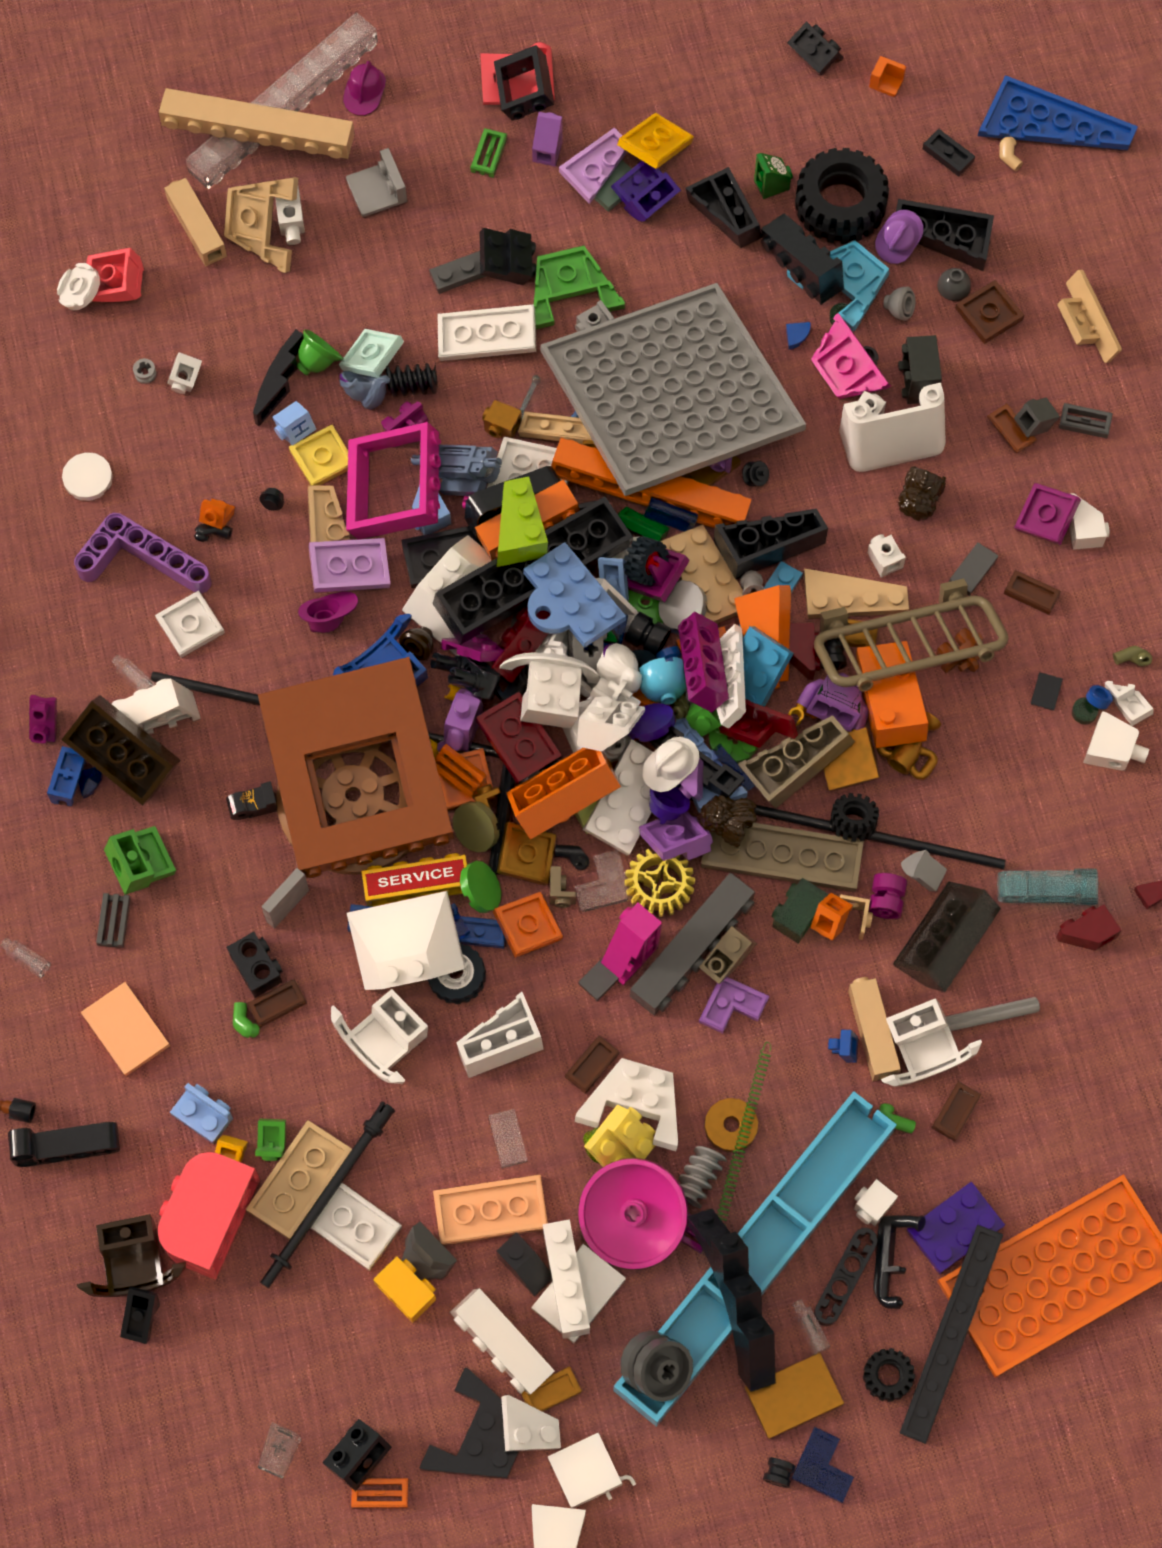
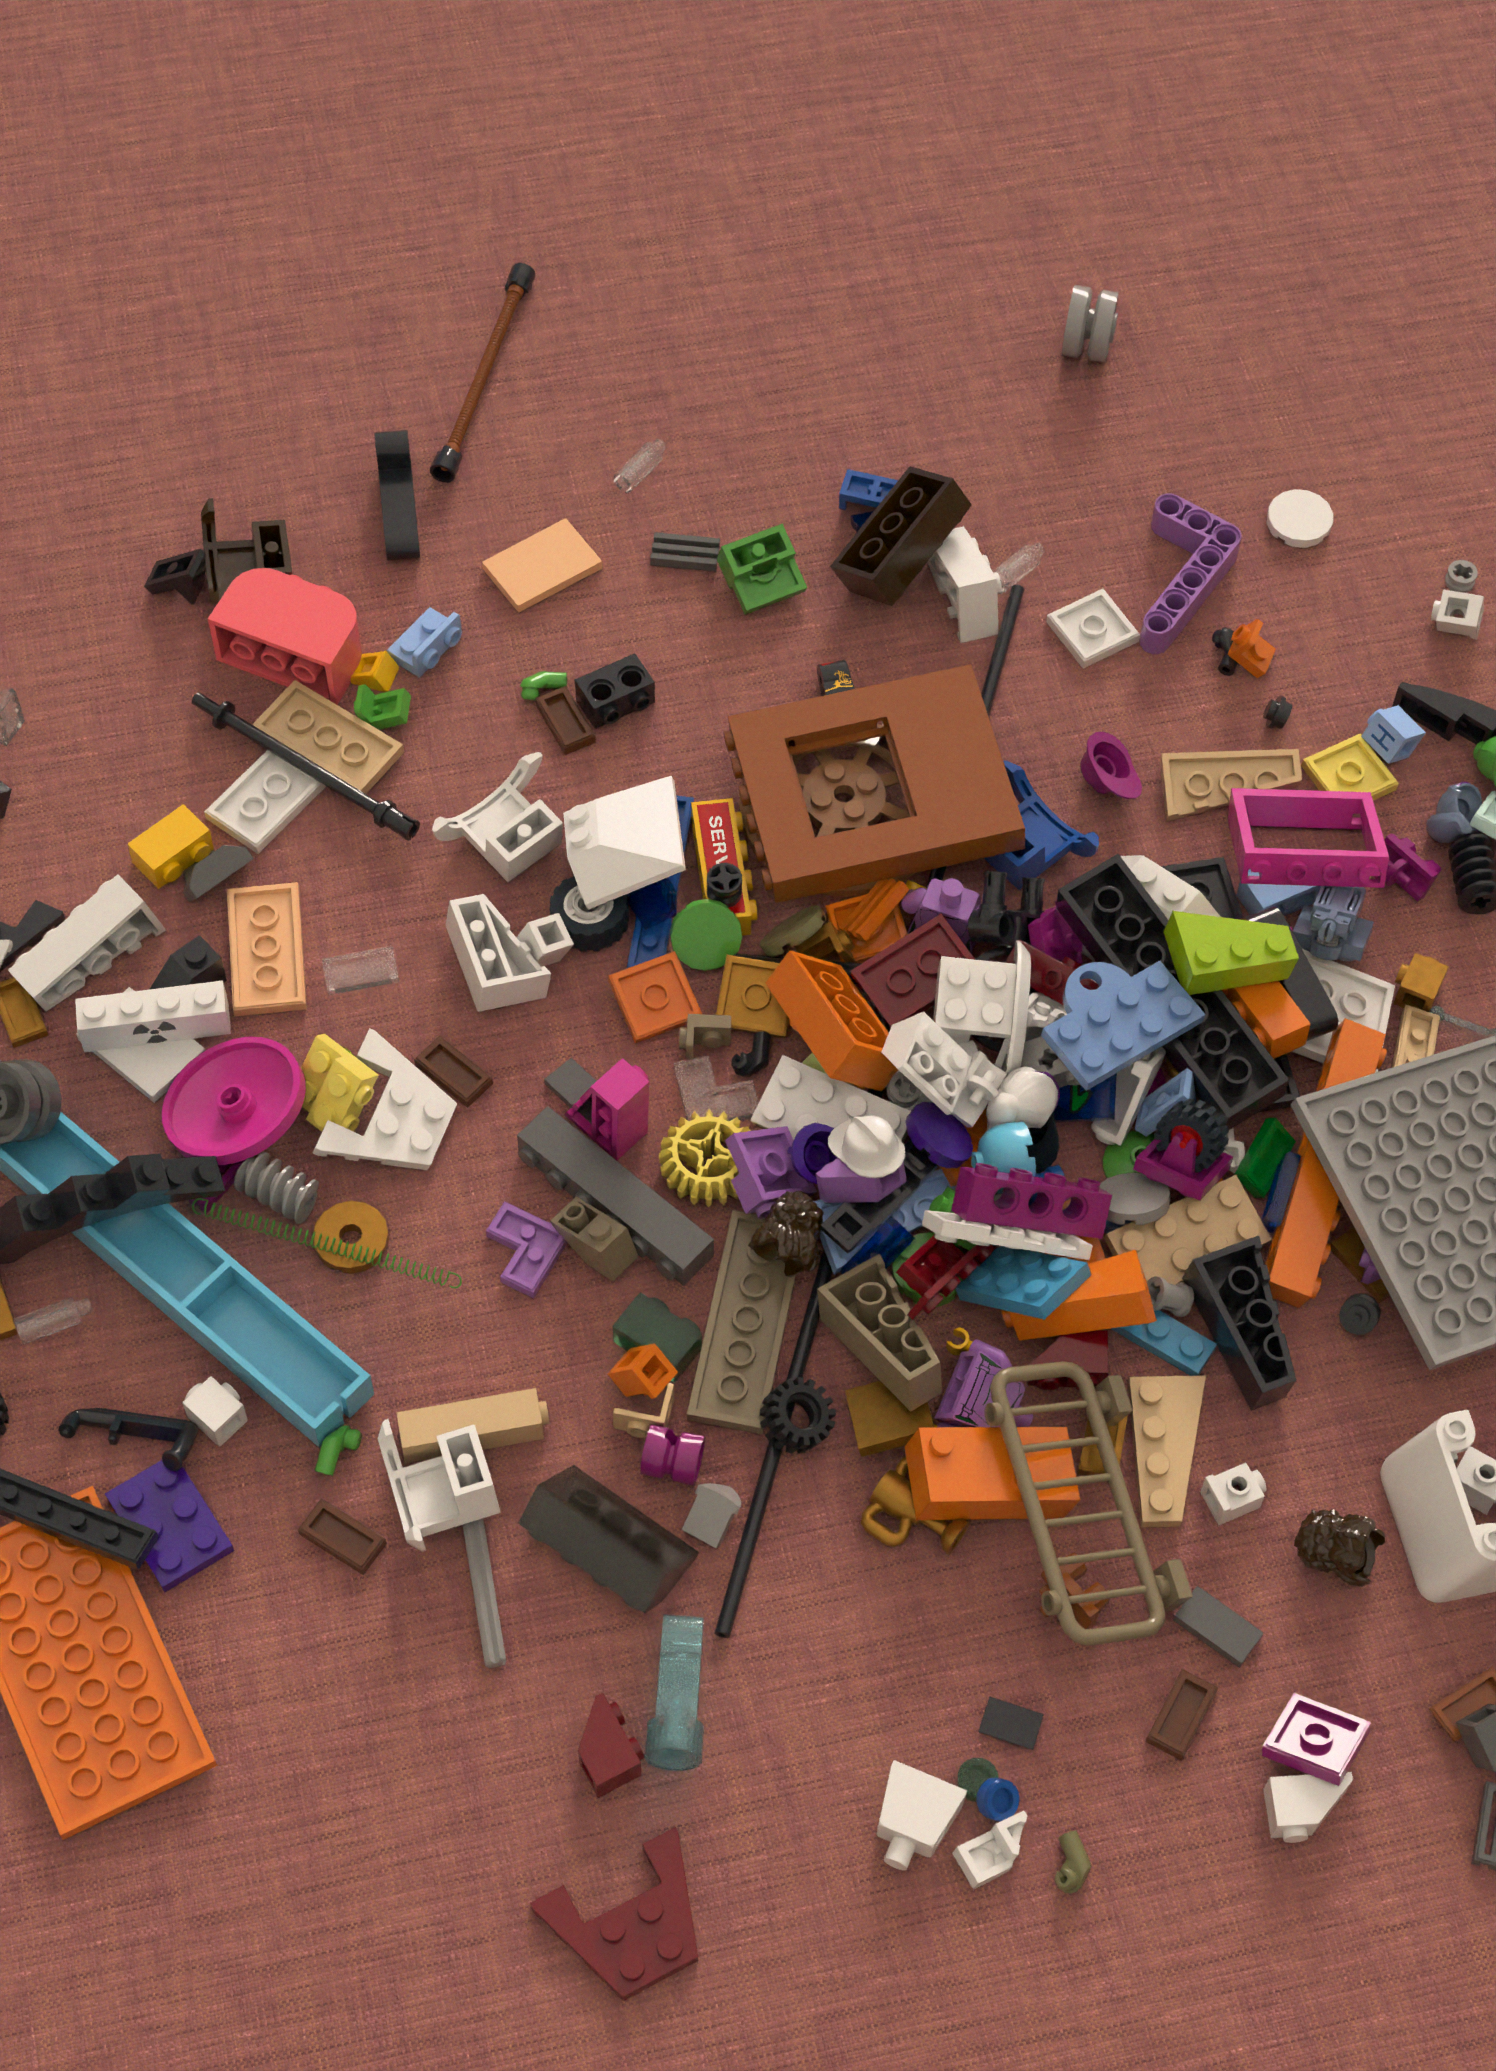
camera: 90 degrees right, 10 degrees down
(42, 719) = (955, 463): magenta hips -> none
(285, 898) = (697, 714): light grey tile -> none
(349, 565) = (1178, 791): lavender plate -> none
(418, 642) = (1068, 870): dark brown brick -> none
(445, 864) = (730, 878): none -> black wheel
(487, 999) = (546, 939): none -> white brick
(646, 633) = (1088, 1151): black wheel -> none
(835, 650) = (1053, 1395): black wheel -> none
(843, 1275) = (121, 1366): black beam -> none
(845, 1046) = (447, 1384): blue tile -> none

